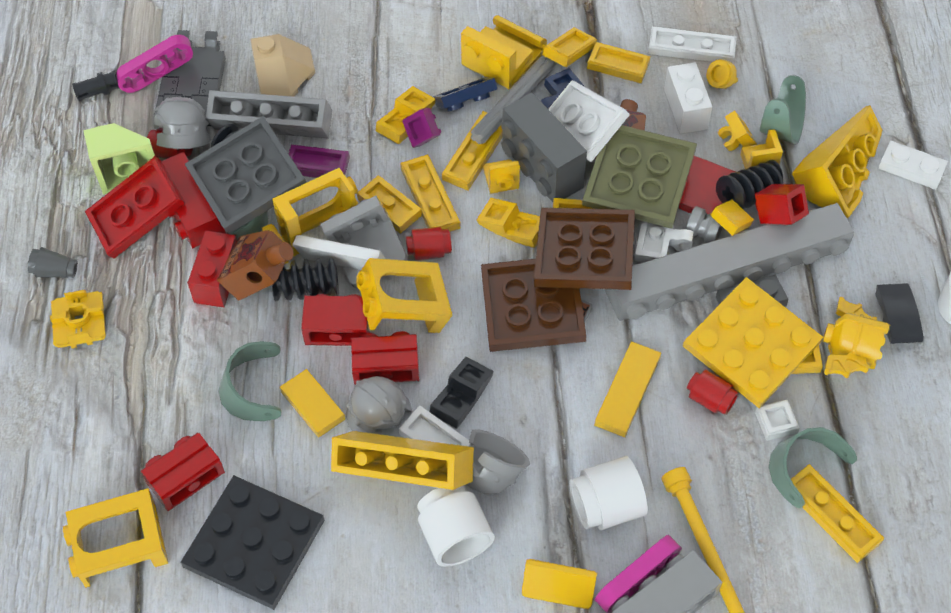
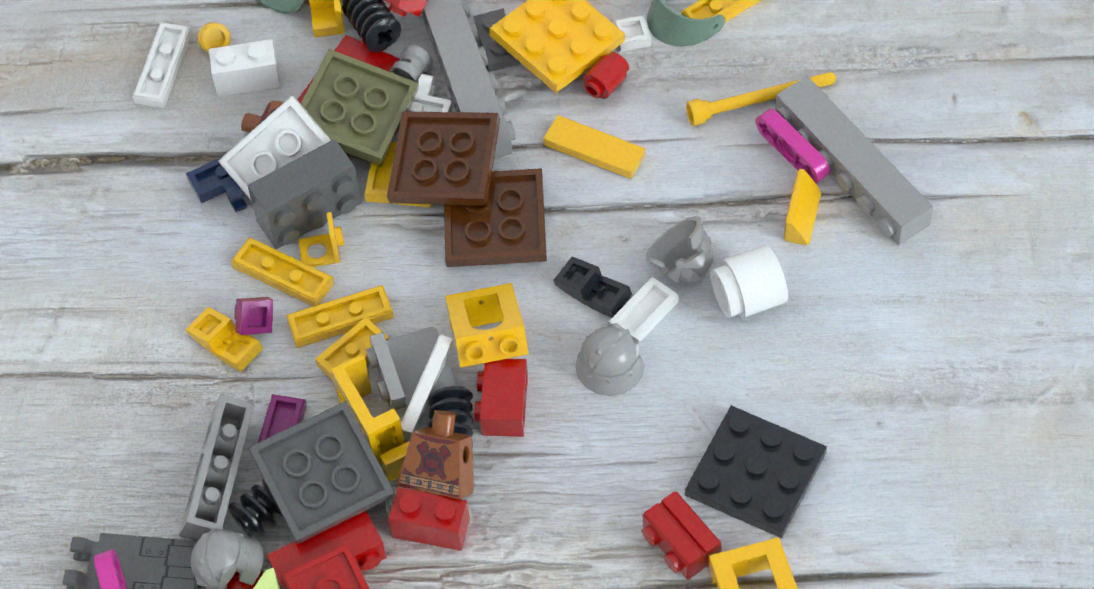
camera: 85 degrees left, 0 degrees up
(229, 397) = (575, 499): sand green piece -> none
(281, 64) = (138, 472): tan slope -> none
(312, 403) = (599, 422): yellow tile -> none
(385, 357) = (553, 351): red brick -> none
(402, 459) = (686, 318): yellow brick -> none
(429, 243) = (410, 310): red brick -> none
(454, 98) = (205, 275): dark blue plate -> none
(501, 51) = (151, 236): yellow piece -> none
(507, 221) = (386, 239): yellow slope -> none
(521, 88) = (219, 226): light grey axle -> none
(569, 47) = (154, 172): yellow tile -> none
(608, 494) = (718, 156): white piece -> none
(618, 62) = (176, 133): yellow tile -> none
(732, 217) = (414, 35): yellow tile -> none
(738, 130) = (294, 28): yellow tile -> none

